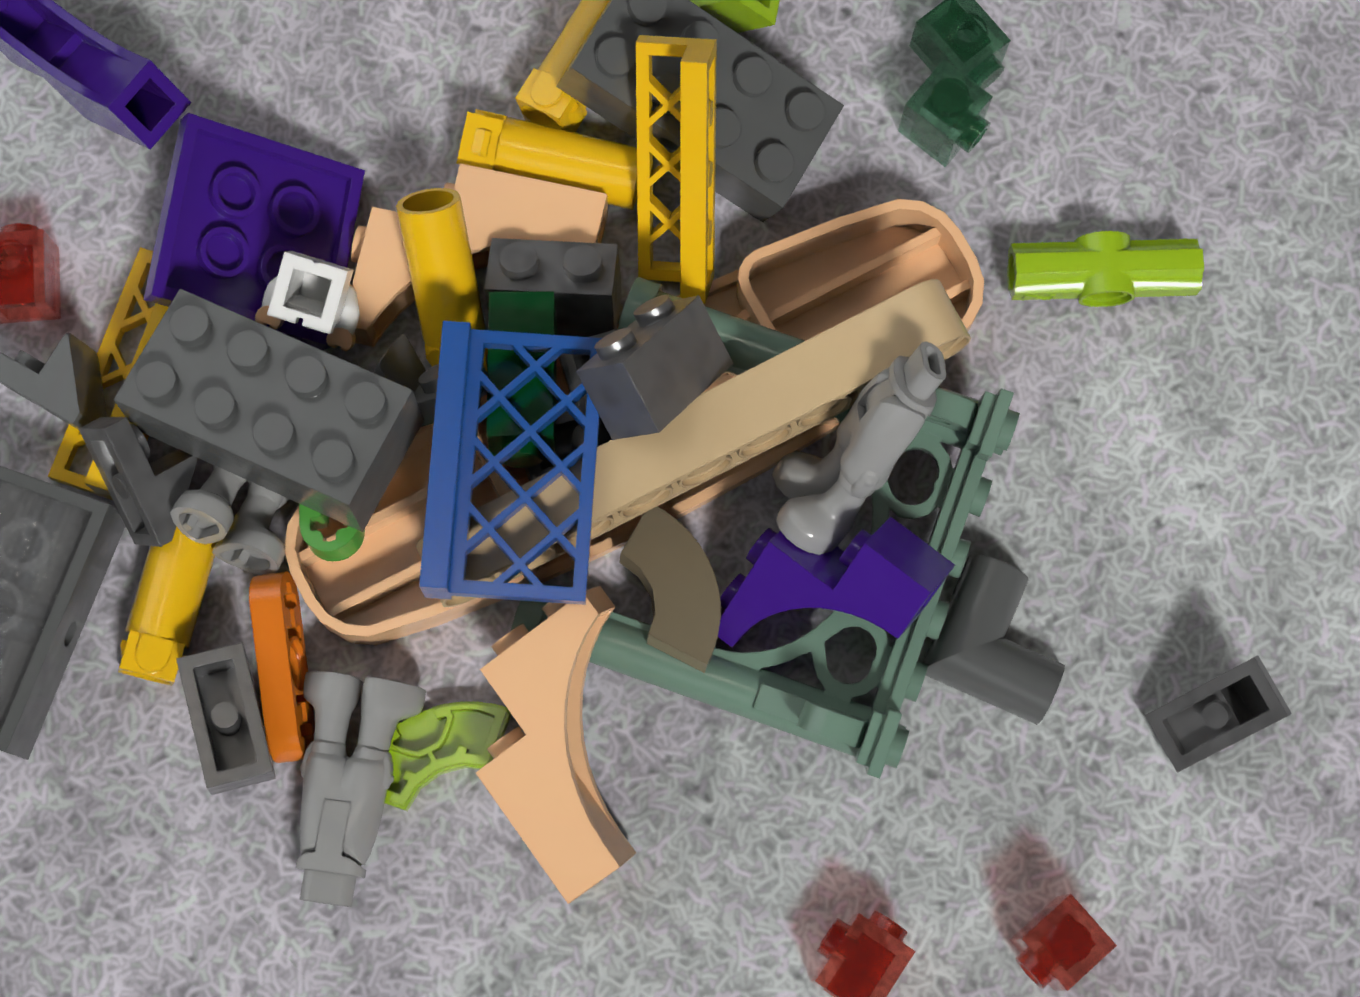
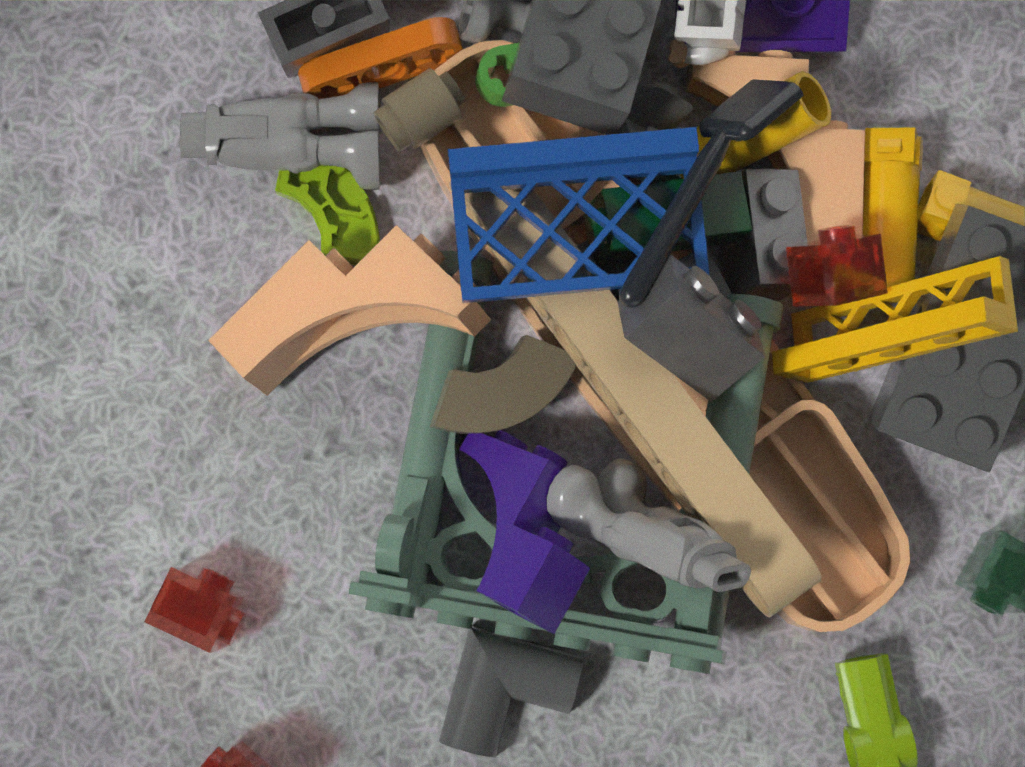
camera: 75 degrees right, 5 degrees up
(354, 623) = (420, 109): none -> dark tan brick
(437, 277) = (735, 119): none -> black piece
(610, 213) = (837, 268): none -> clear red brick

